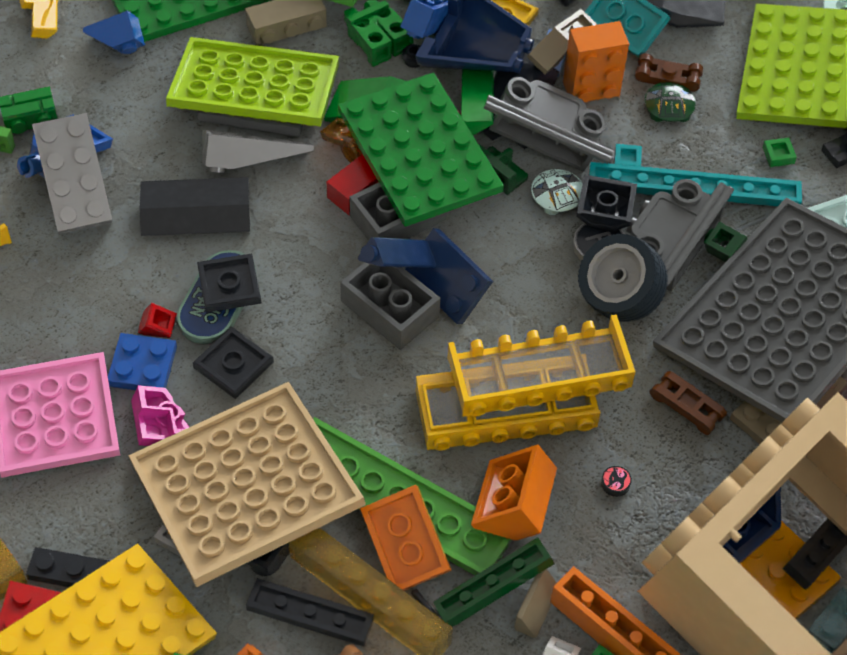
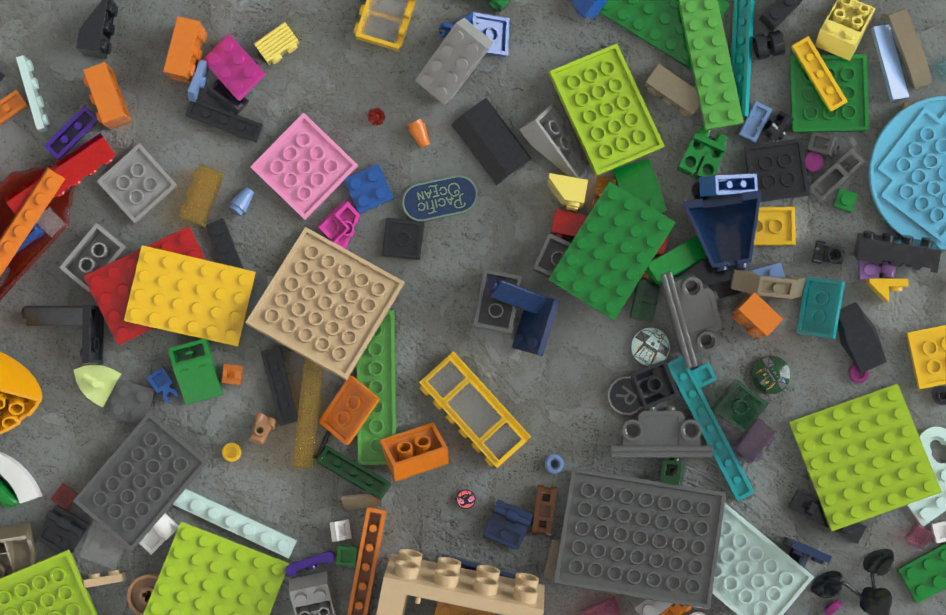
camera: 65 degrees right, 30 degrees up
(34, 513) = (241, 201): none -> medium blue cone
(63, 303) = (376, 116): none -> clear red plate
(121, 270) = (419, 132): none -> orange cone
(157, 321) = (401, 177): red slope -> none
(229, 282) = (447, 201): black plate -> none
(314, 150) = (568, 191): none -> light yellow slope
(541, 368) = (500, 419): window -> none
(623, 277) = (596, 429): wheel -> none
(641, 356) = (548, 463): none -> medium blue plate
(668, 72) = (796, 360): reddish brown plate -> none
(681, 449) = (508, 524): none -> dark blue plate
(687, 138) = (739, 406): none -> clear green slope
(721, 34) = (855, 375): none -> magenta tile
(736, 147) = (752, 443): none -> clear purple slope
(779, 152) = (772, 466): green plate -> none

